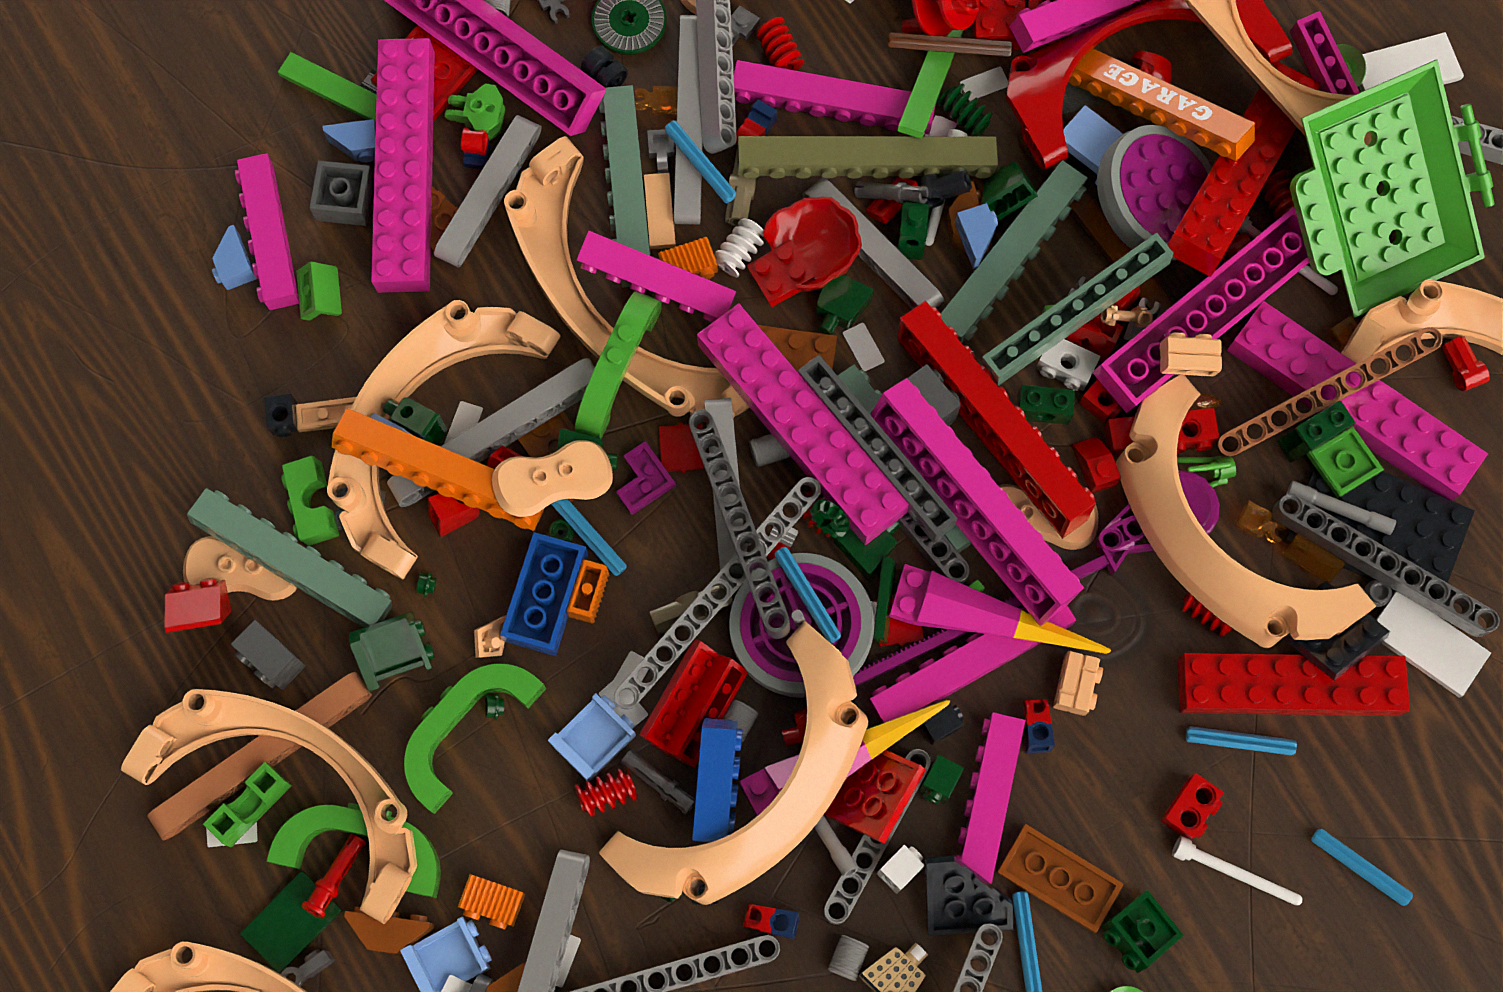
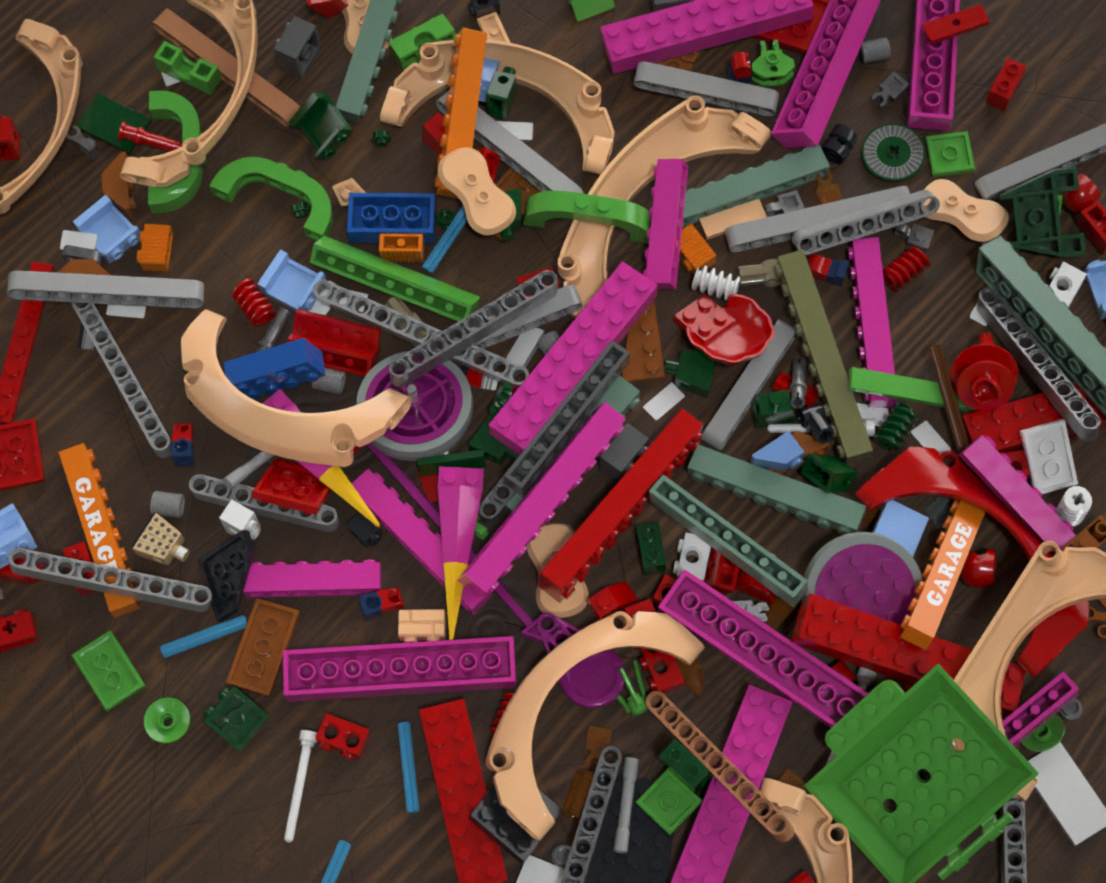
camera: 80 degrees right, 5 degrees down
(627, 611) = (393, 279): none -> bright green brick
(651, 479) = (505, 270): magenta plate -> none
(700, 161) = (777, 232): dark azure axle -> none
(758, 483) = (525, 347): none -> white slope
(807, 595) = (435, 398): dark azure axle -> none
(940, 780) = (316, 535): dark green brick -> none
(1127, 722) = (399, 669): none -> dark pink brick
(1138, 315) = (745, 601): light nougat bar -> none
(1190, 355) = (712, 638): light nougat brick -> none

